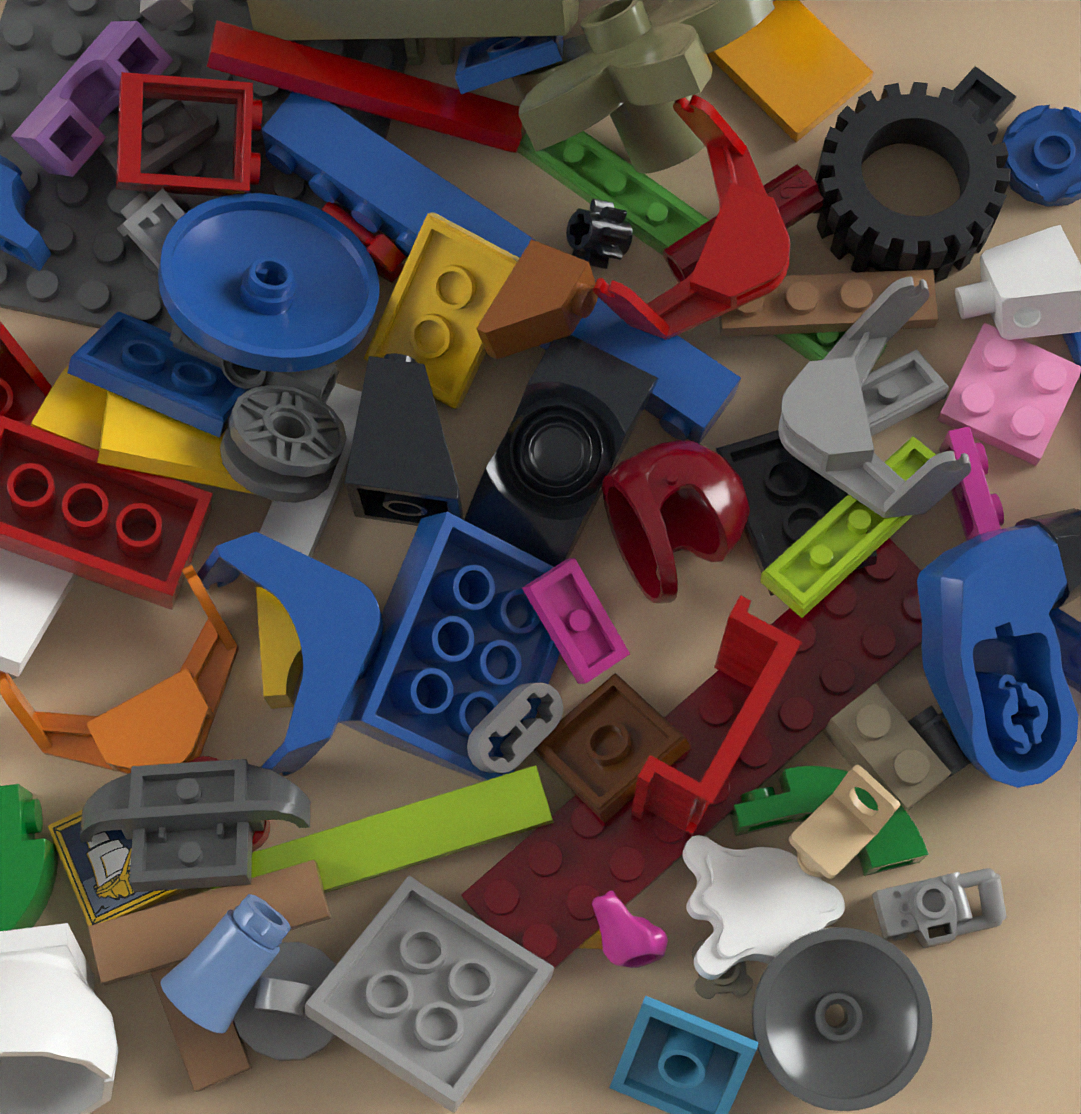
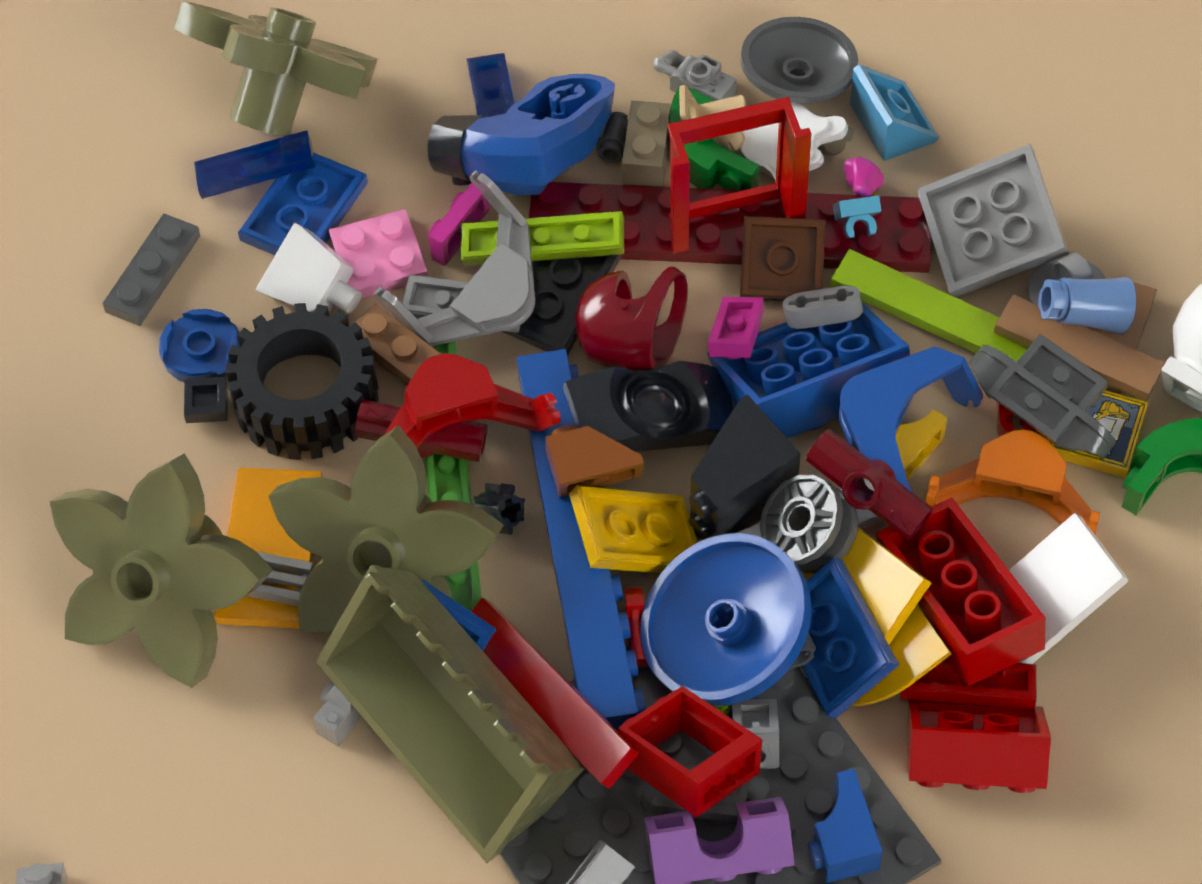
camera: 135 degrees left, 15 degrees down
(245, 505) = (889, 499): none -> dark red piece
(580, 861) = (857, 210): none -> medium azure tile

